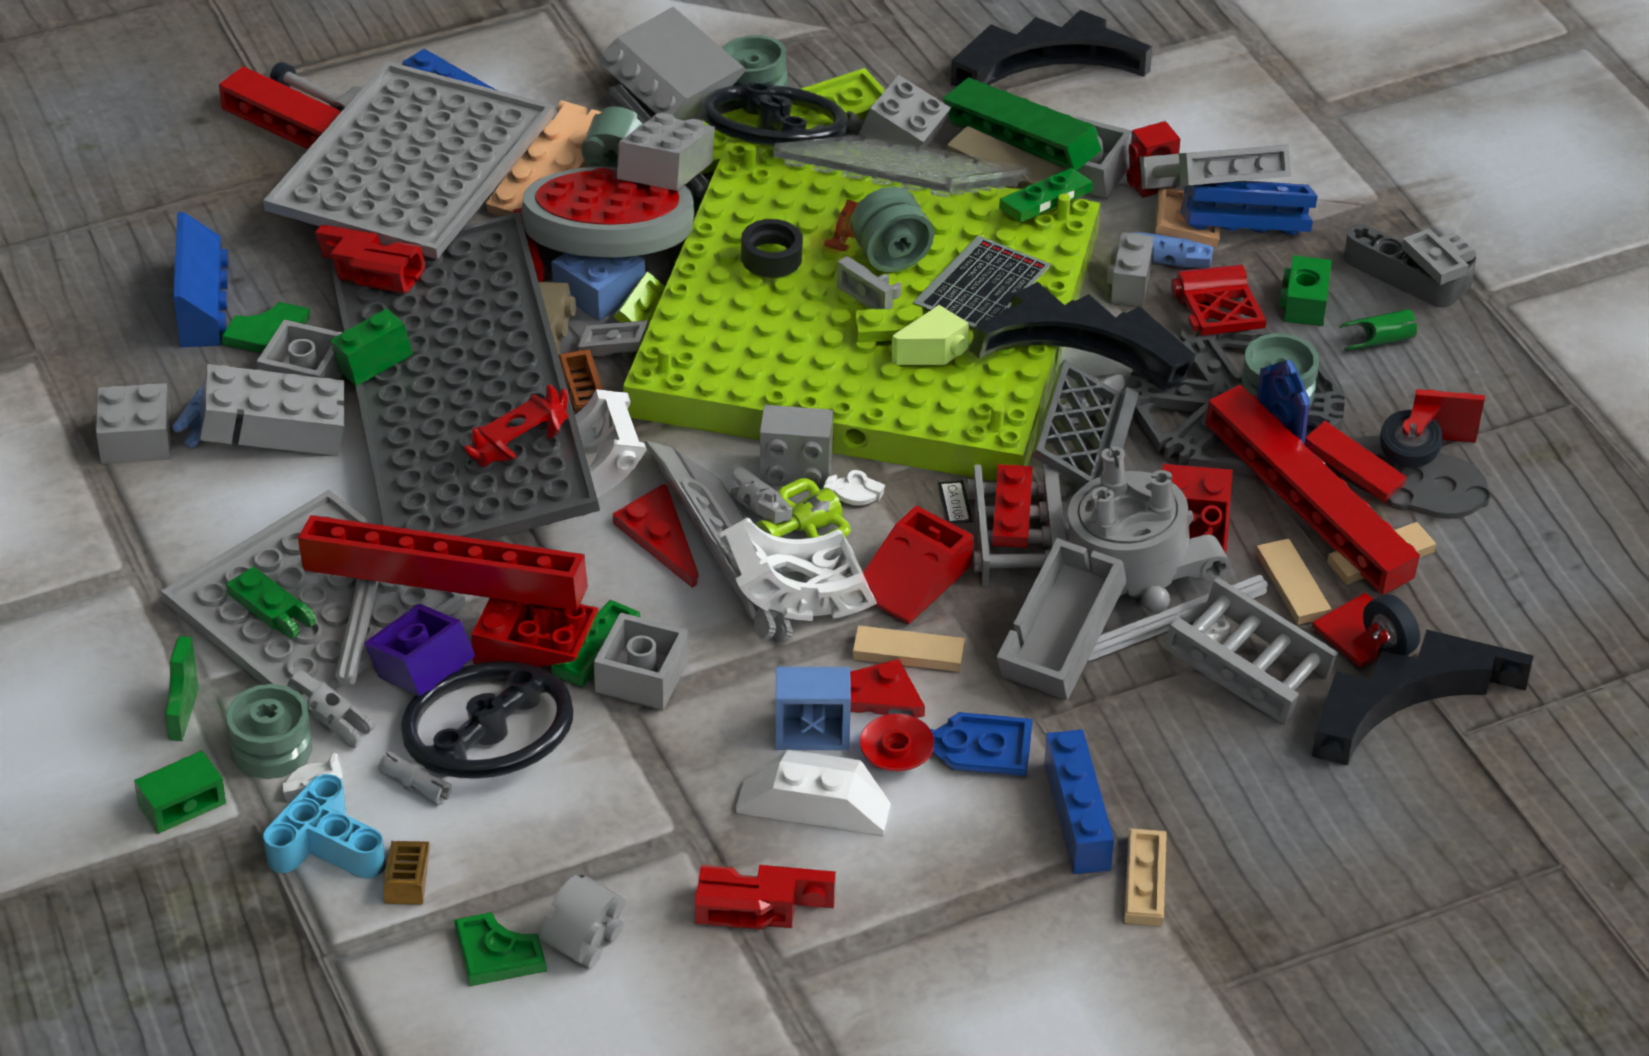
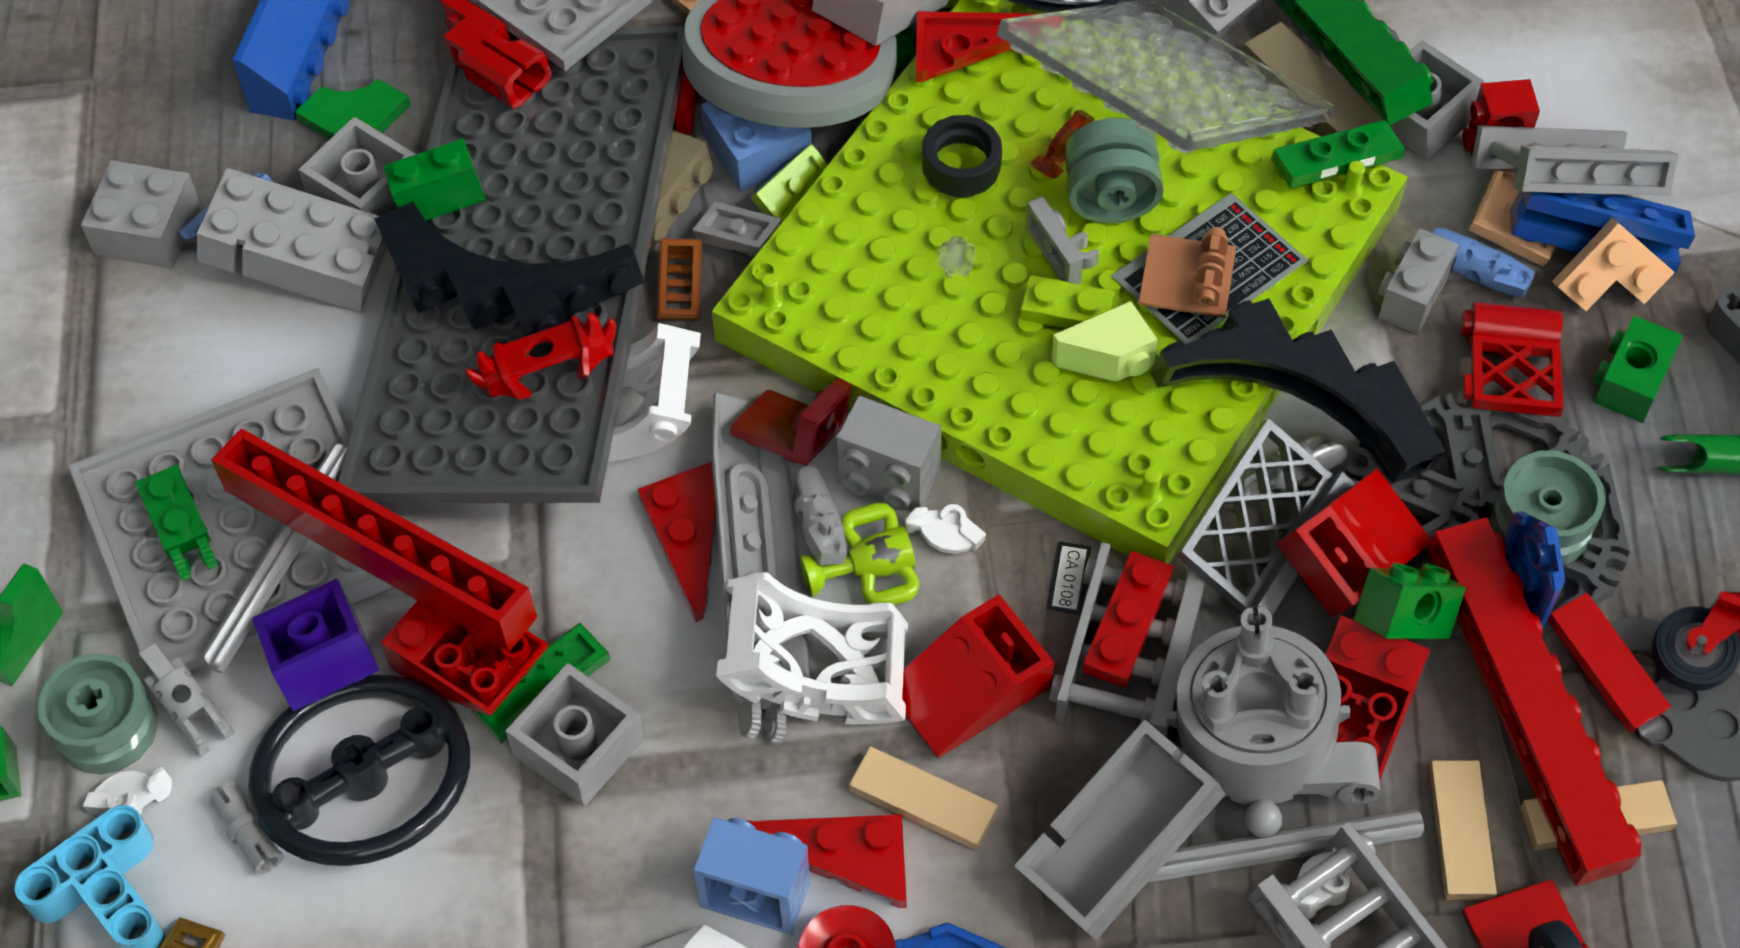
camera: 20 degrees right, 15 degrees up
(449, 400) = (492, 288): none -> black arch
(722, 451) = (794, 427): none -> dark red bracket
(736, 177) = (957, 40): none -> red wing
(795, 310) = (956, 256): none -> clear plate
(971, 286) = (1189, 273): none -> nougat hinge
(1152, 424) = (1350, 536): none -> red slope
(1207, 443) = (1410, 602): none -> green brick
(1267, 223) = (1611, 257): none -> light nougat plate

